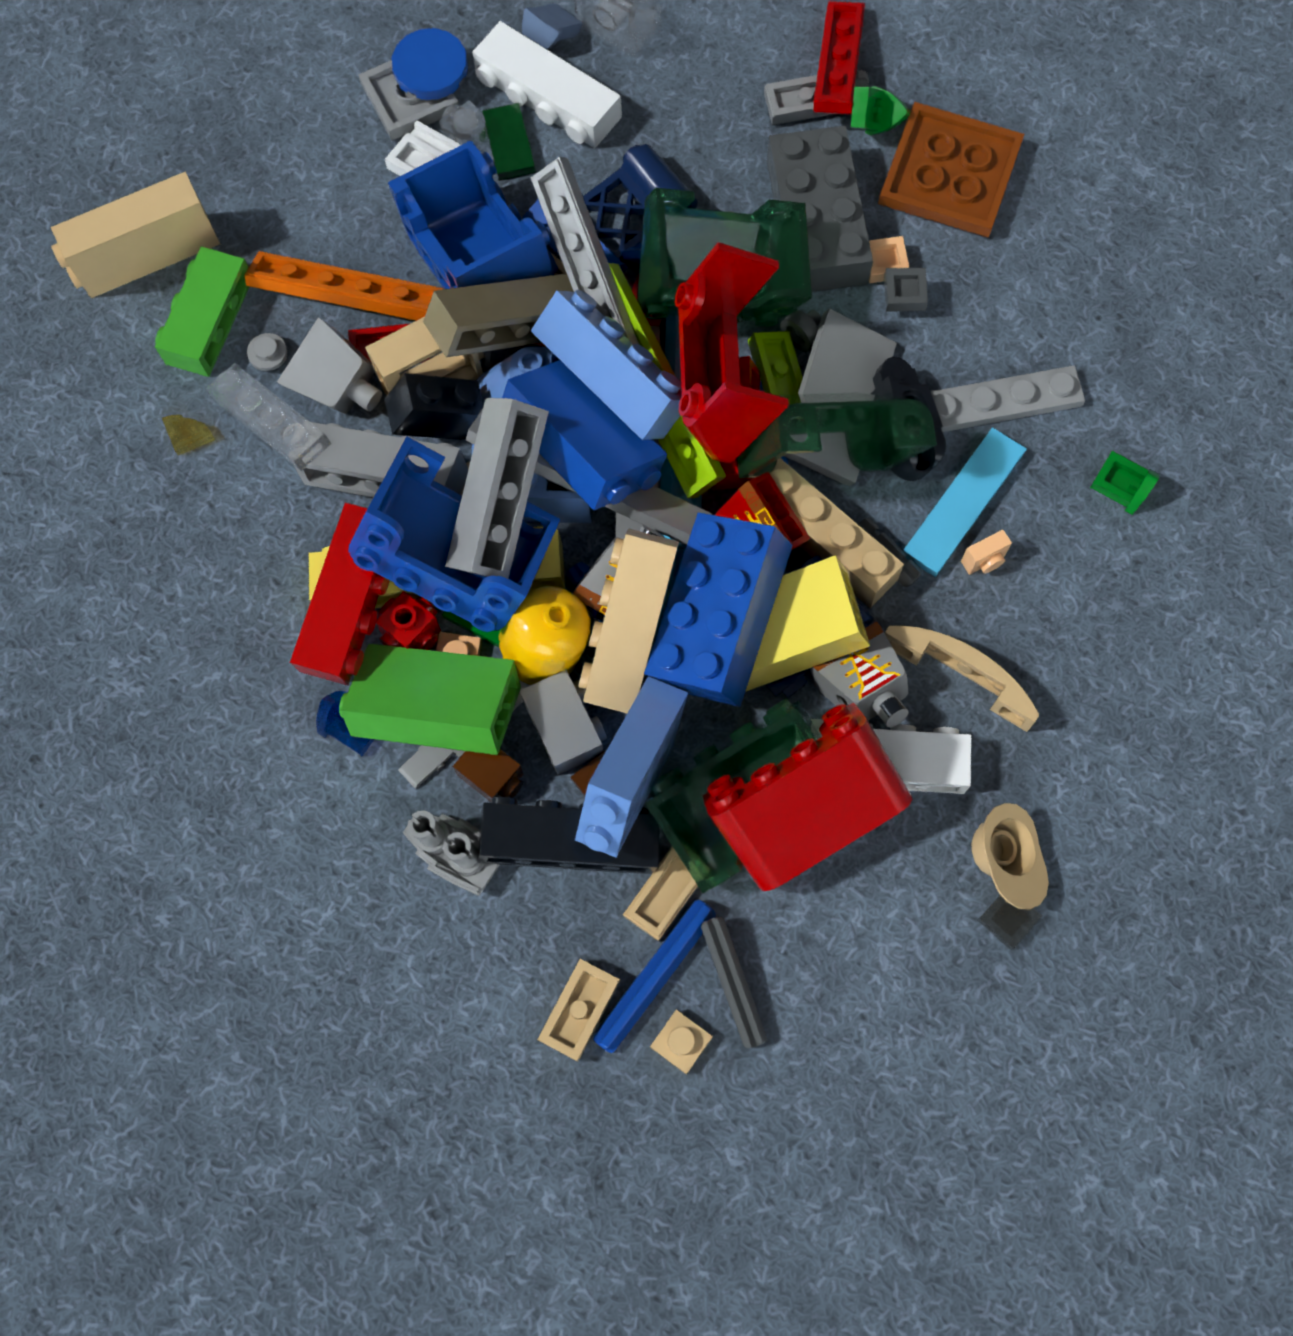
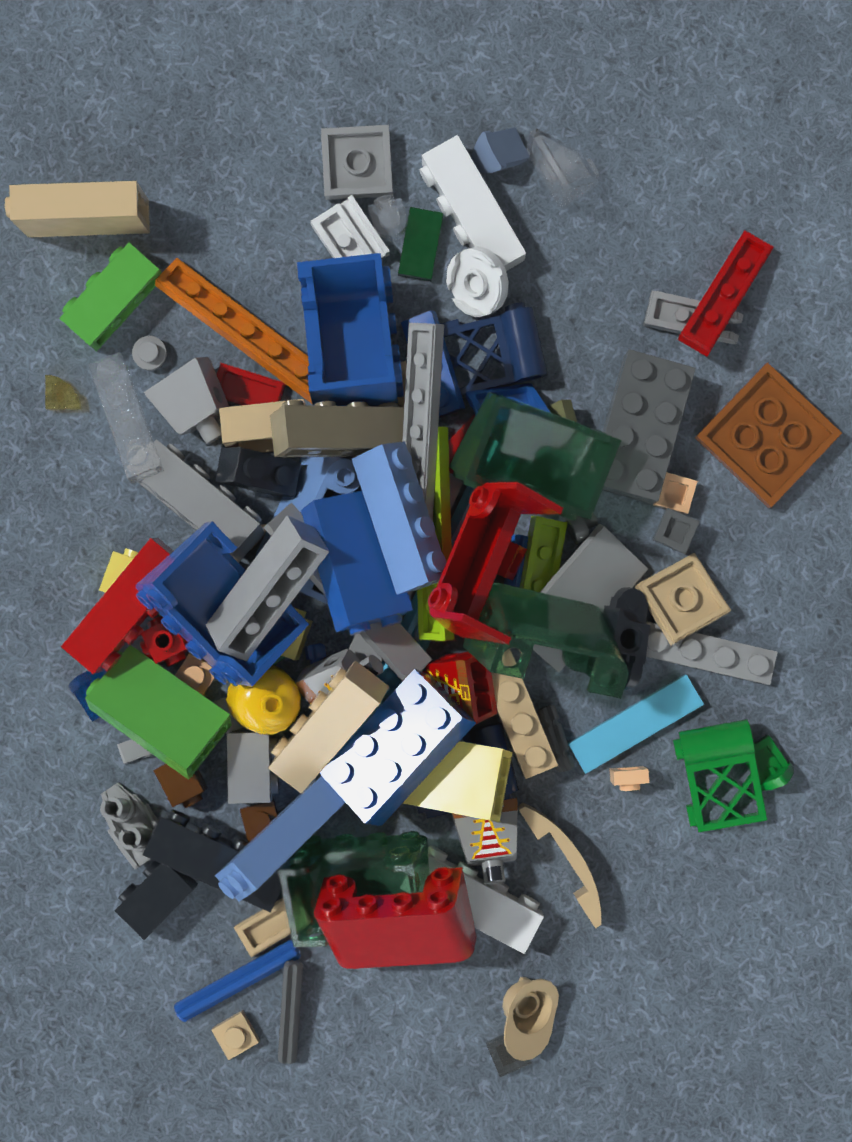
camera: 20 degrees right, 15 degrees up
(429, 63) = (382, 148): blue tile -> none
(515, 915) = (154, 898): none -> black brick
(579, 1010) = (172, 982): tan plate -> none
(586, 138) = (477, 281): none -> white tile
(877, 110) = (731, 357): green tile -> none
(950, 353) = (683, 599): none -> tan tile
(1064, 482) = (715, 748): none -> green piece

